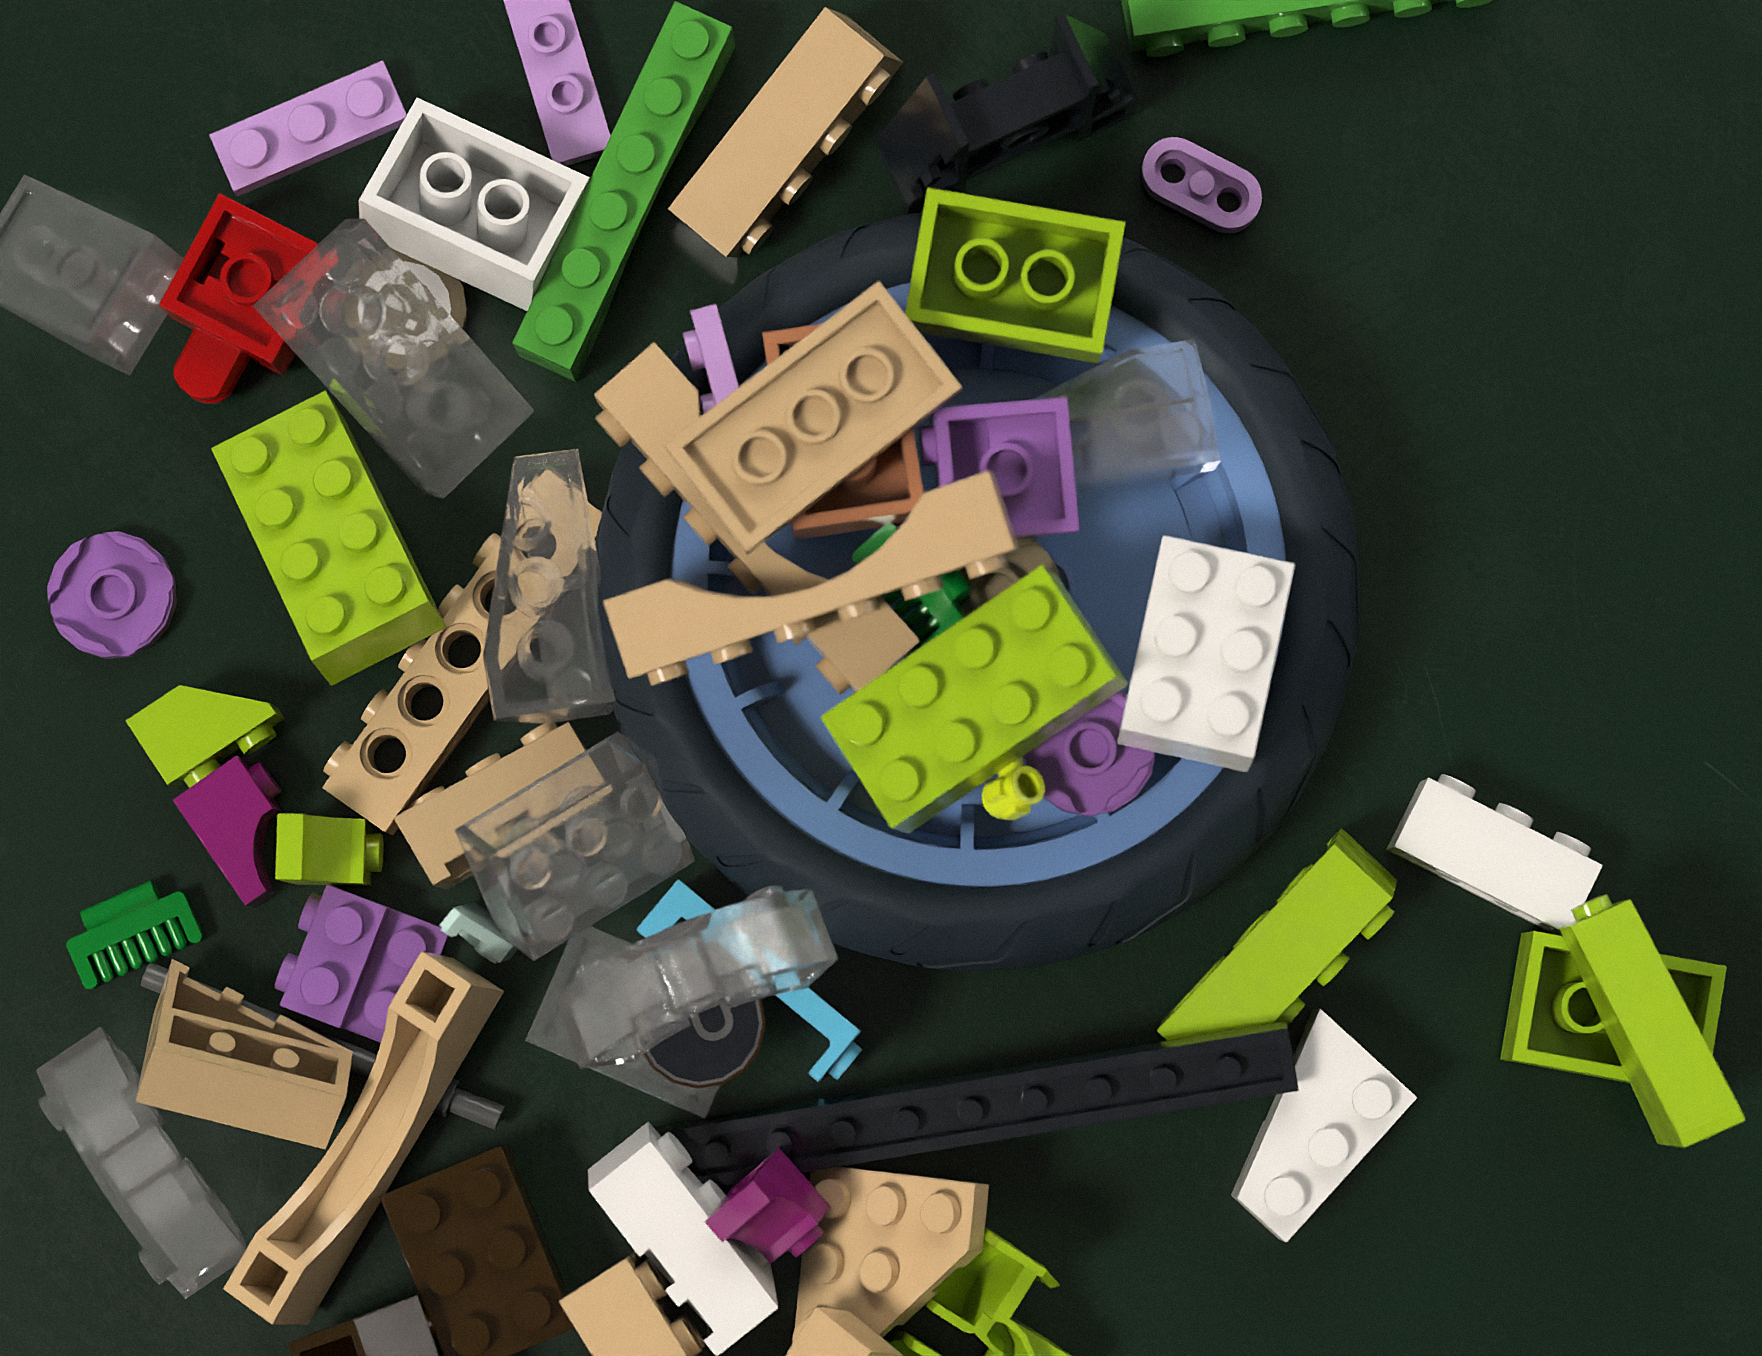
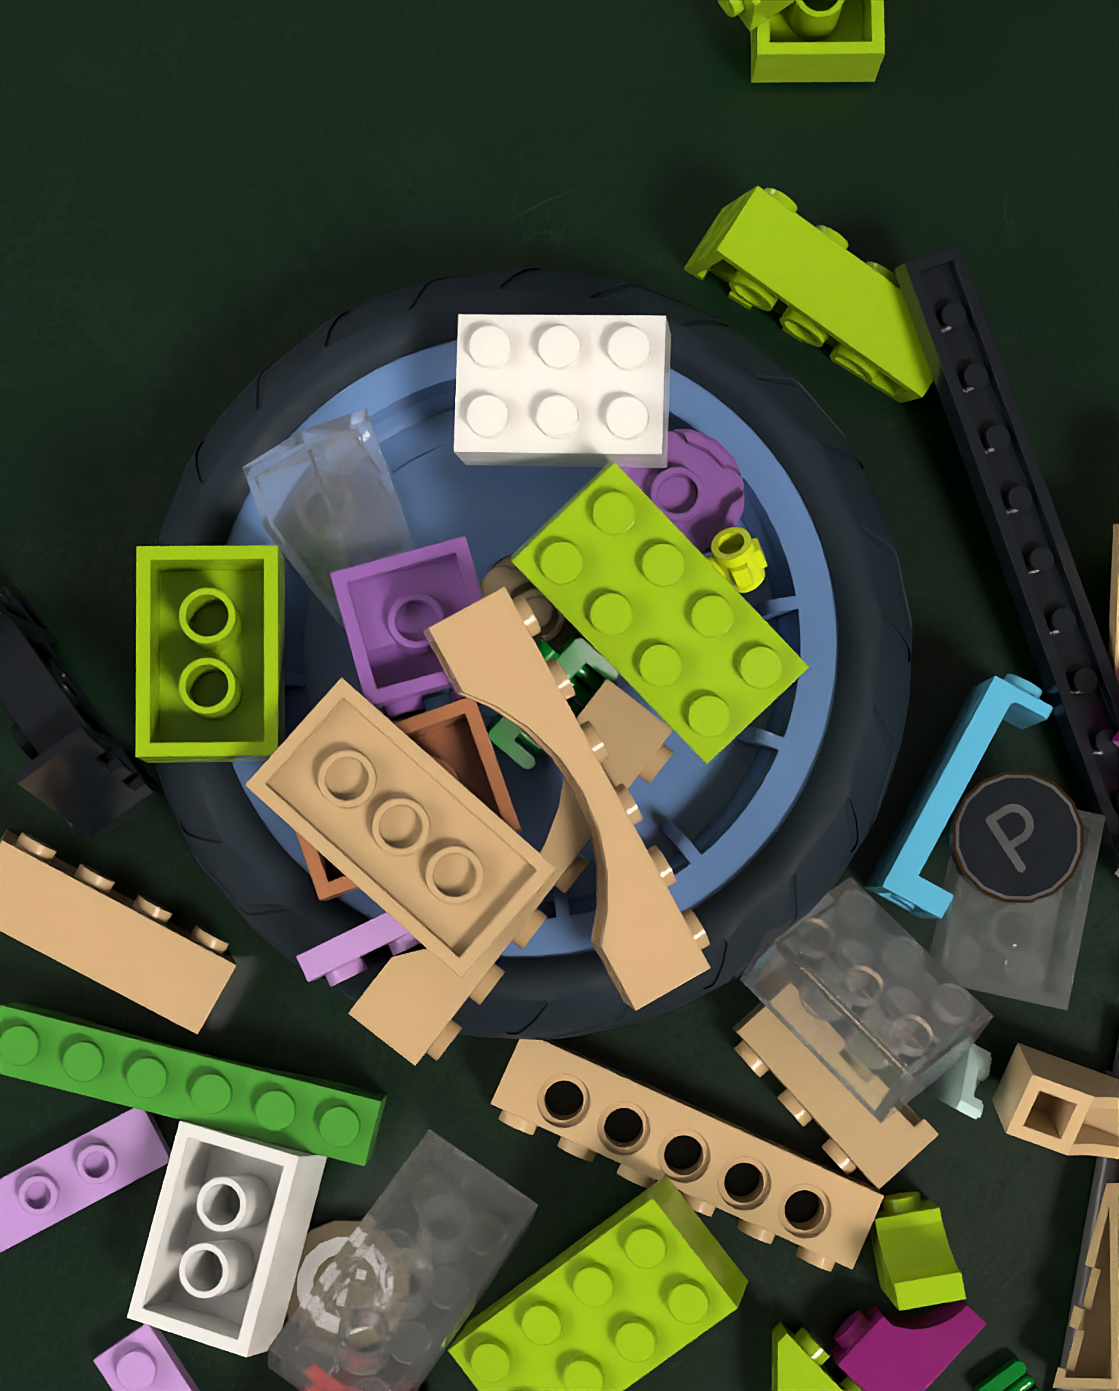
camera: 100 degrees left, 0 degrees up
(353, 960) = (1011, 1198): medium lavender plate -> none
(544, 618) = (629, 1077): clear wedge -> none
(736, 952) = (997, 878): clear brick -> none
(1203, 181) = (74, 511): lavender plate -> none
(1319, 1131) = (1007, 235): white wedge -> none
(1495, 853) = (683, 114): white brick -> none

